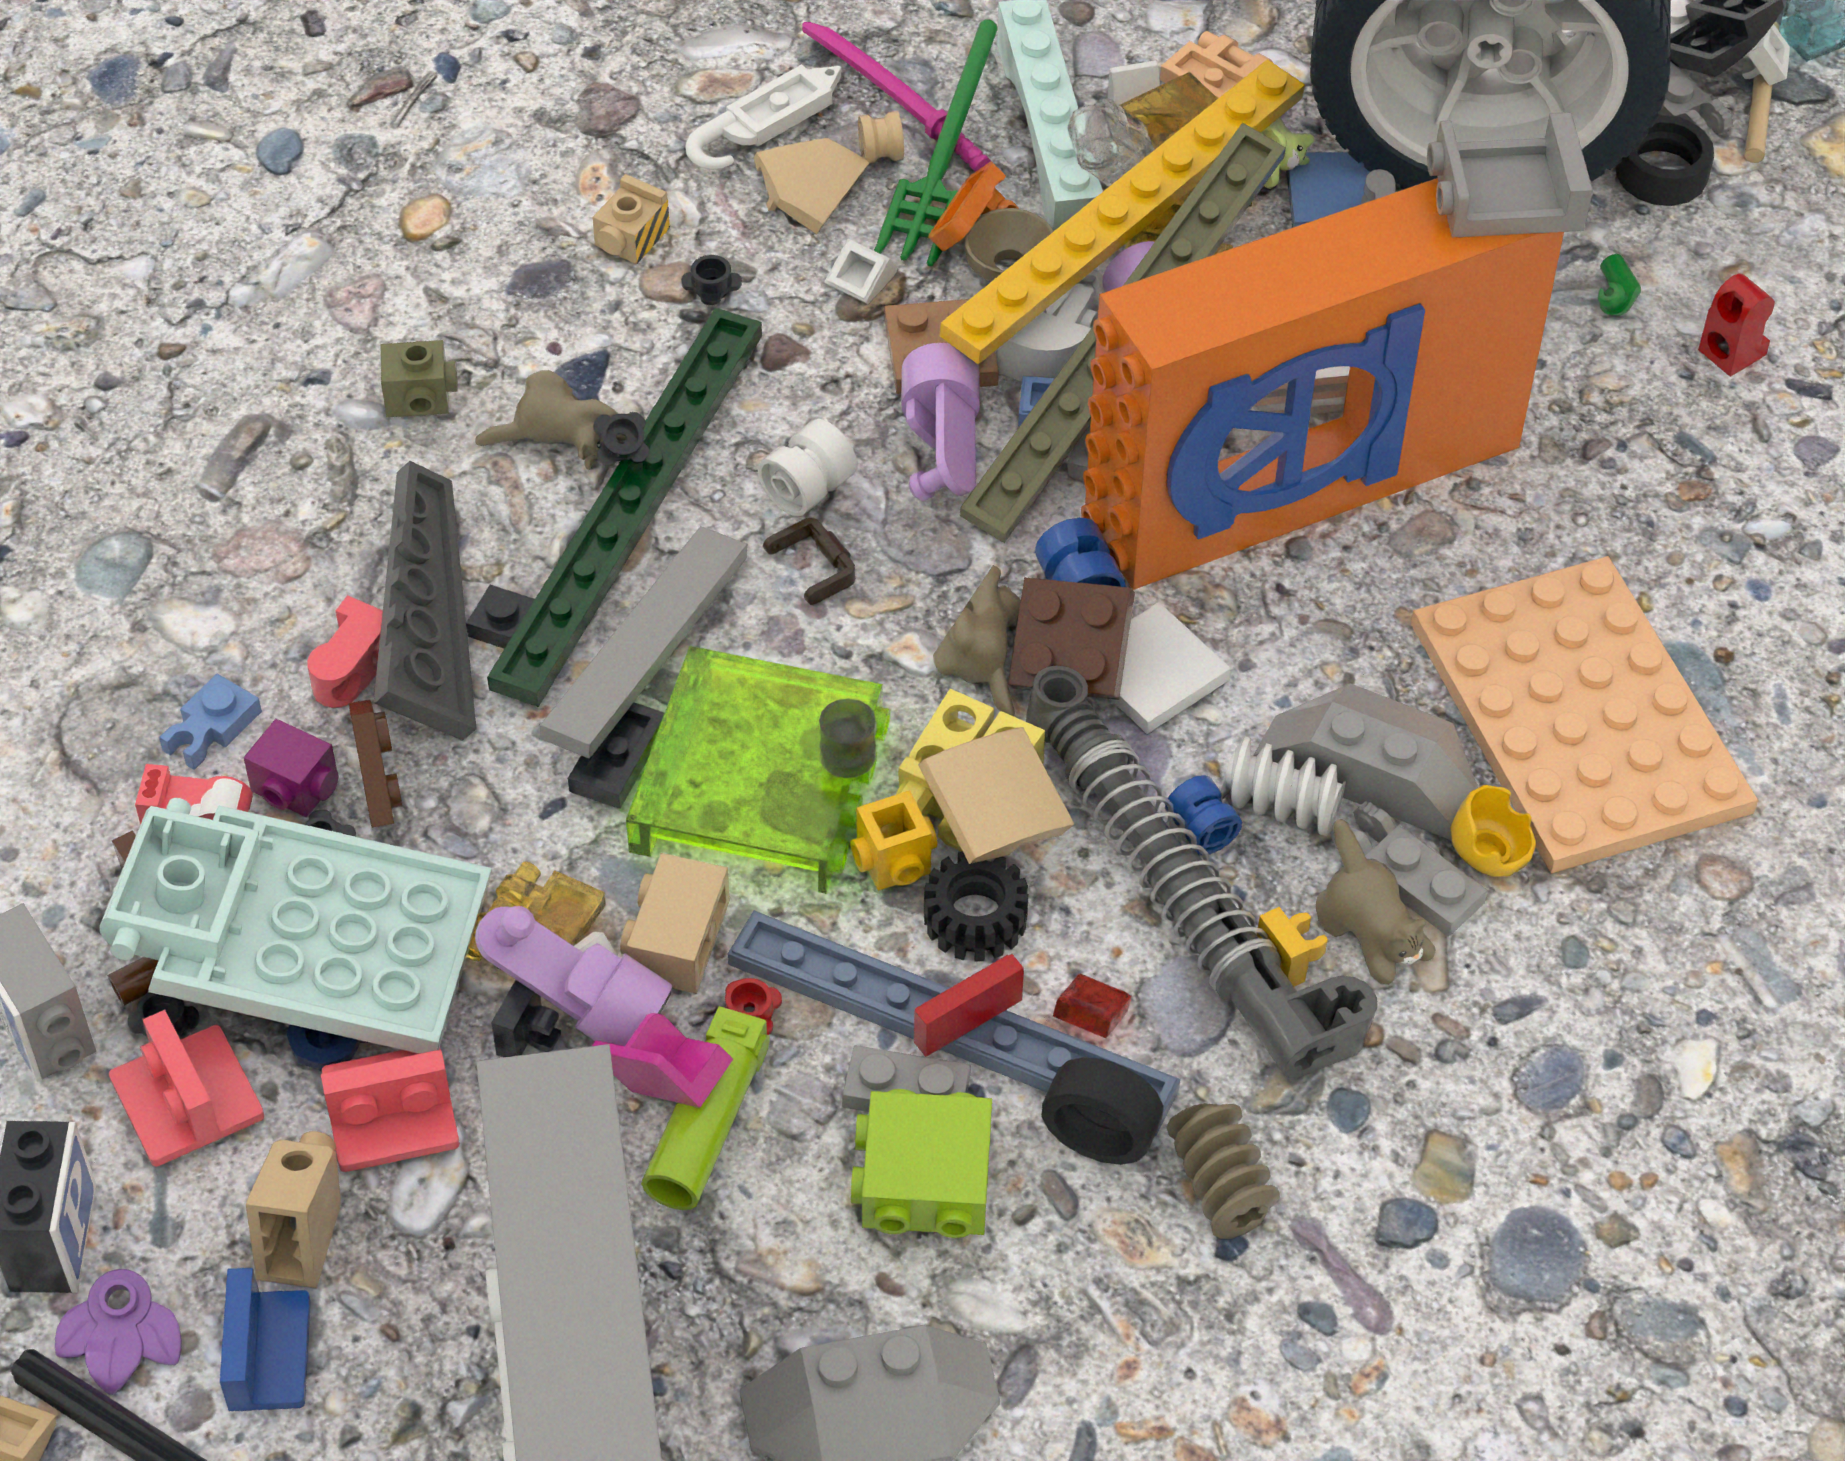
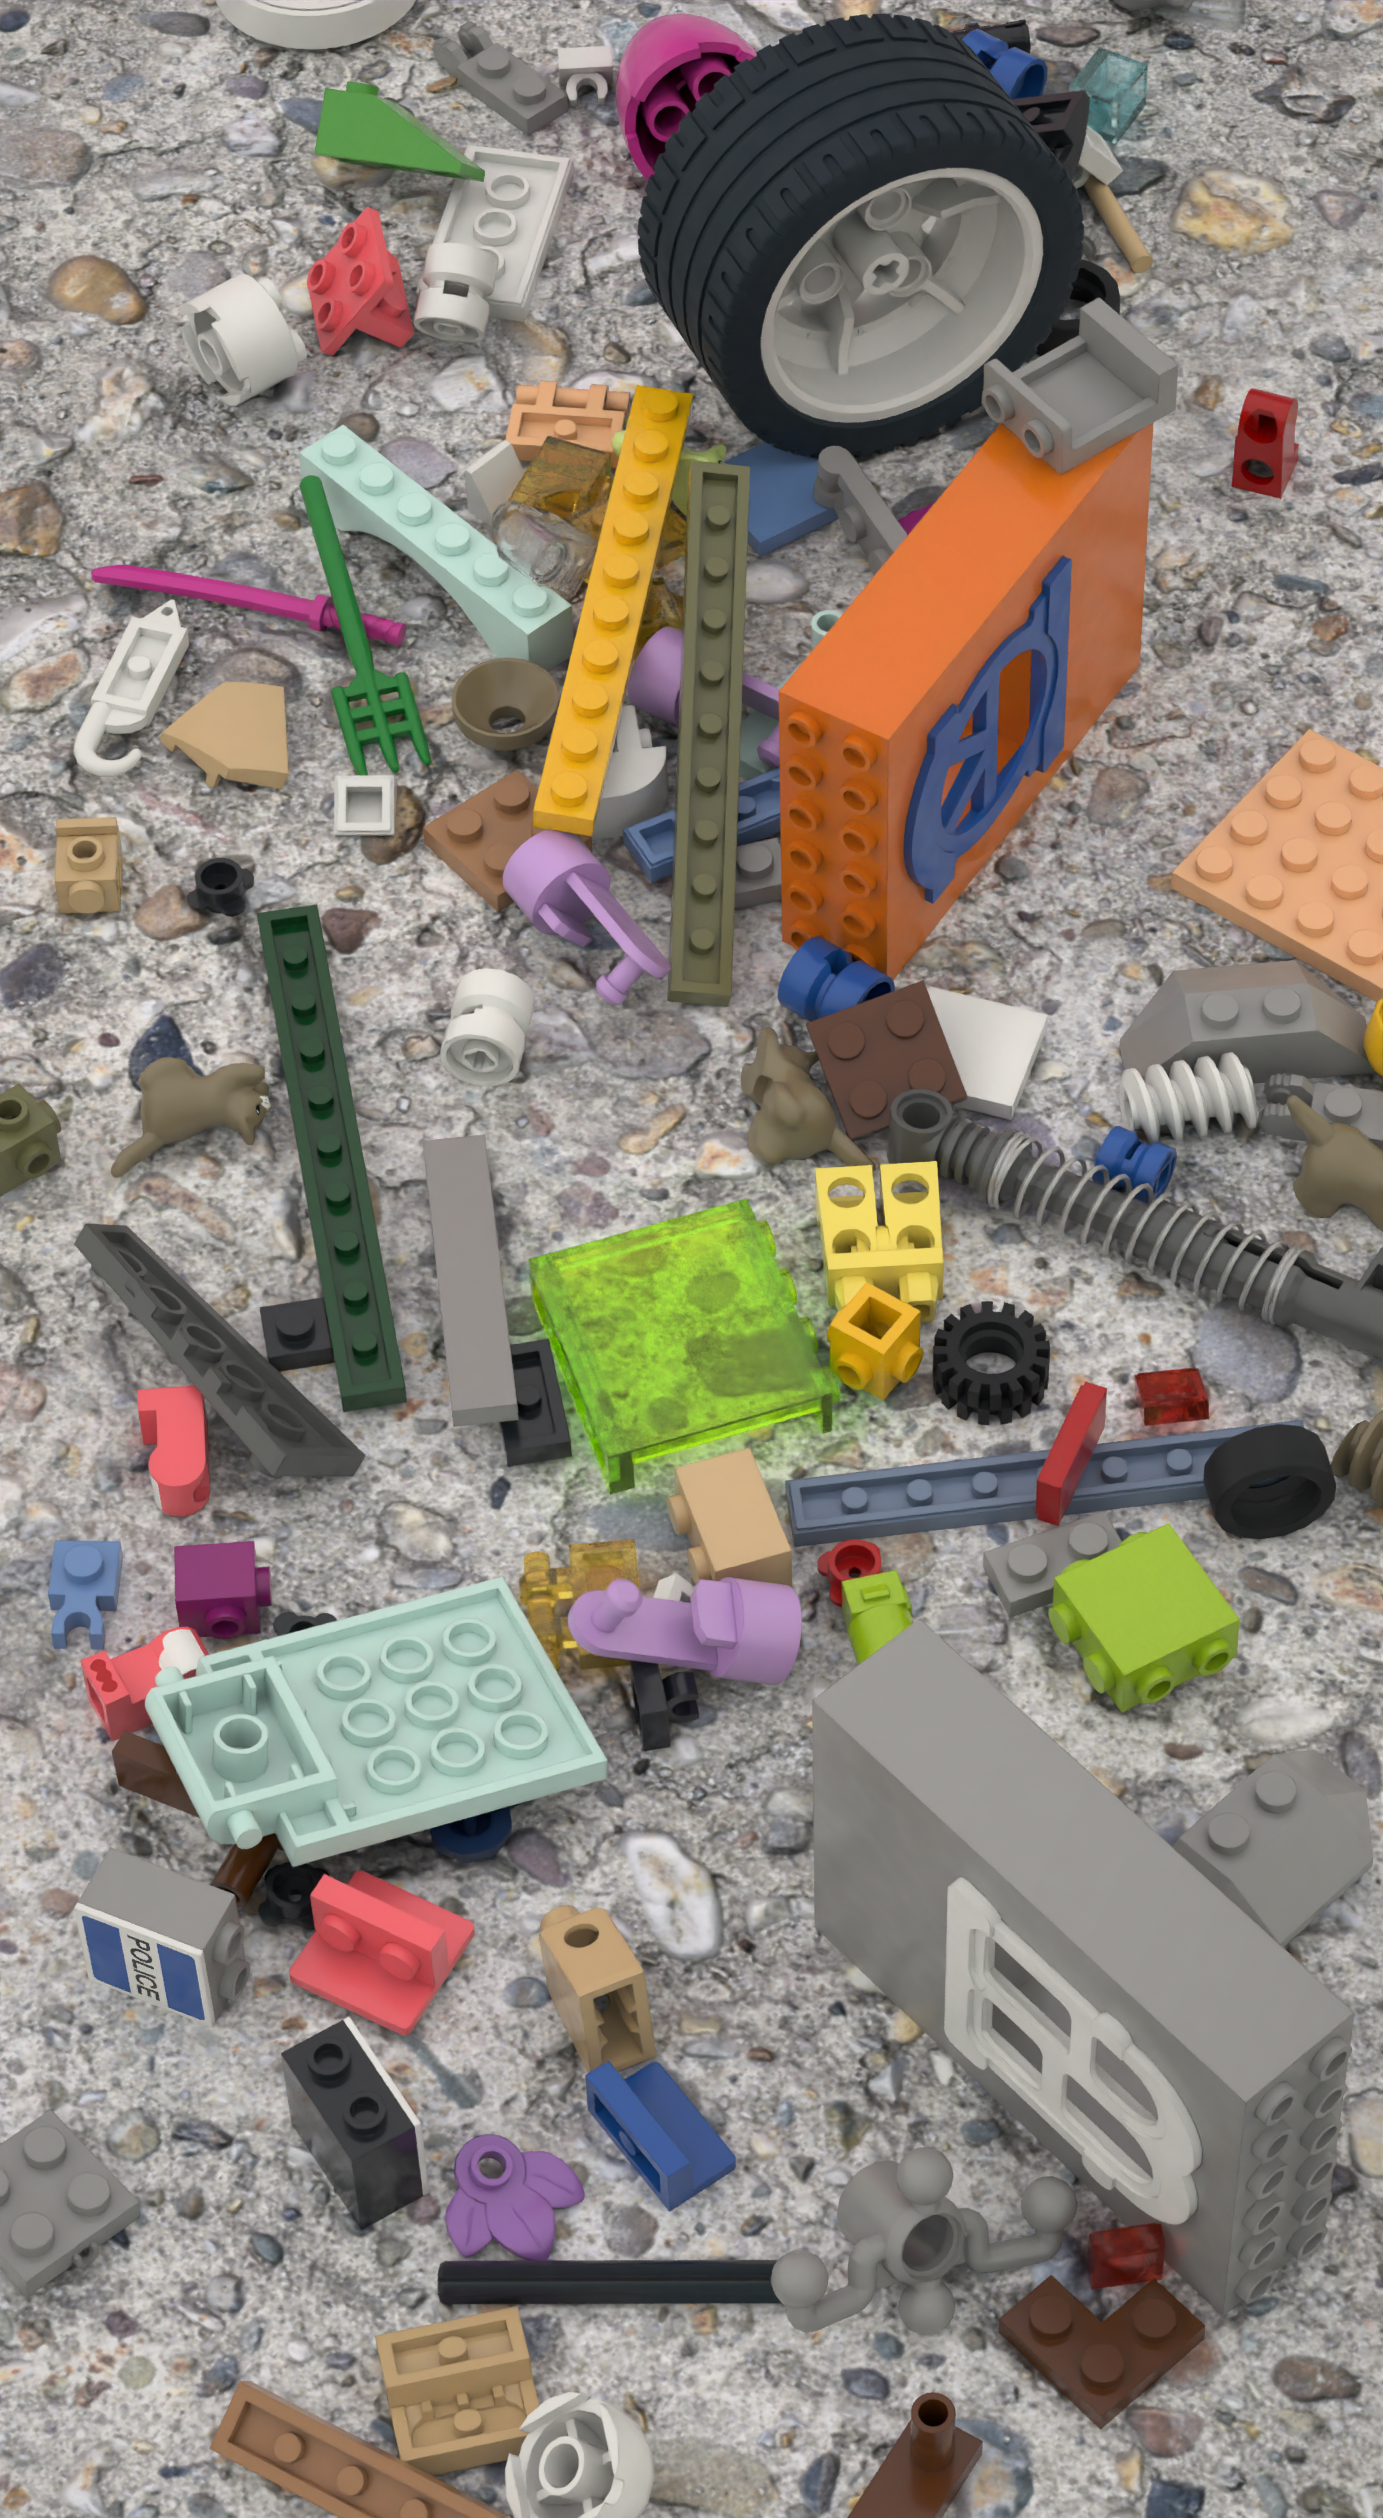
camera: 30 degrees left, 0 degrees up
(371, 740) = (295, 1517): reddish brown plate -> none
(389, 1108) = (594, 1846): coral bracket -> none
(629, 425) = (297, 1080): black plate -> none
(667, 1064) = (827, 1655): dark pink panel -> none
(830, 548) = (564, 1097): dark brown piece -> none
(847, 738) = (770, 1263): clear smoke wheel -> none
(881, 137) = (277, 653): tan wheel -> none
(973, 199) = (432, 683): orange piece -> none
(995, 794) = (949, 1243): tan slope -> none
(1291, 946) = (1314, 1238): yellow tile -> none

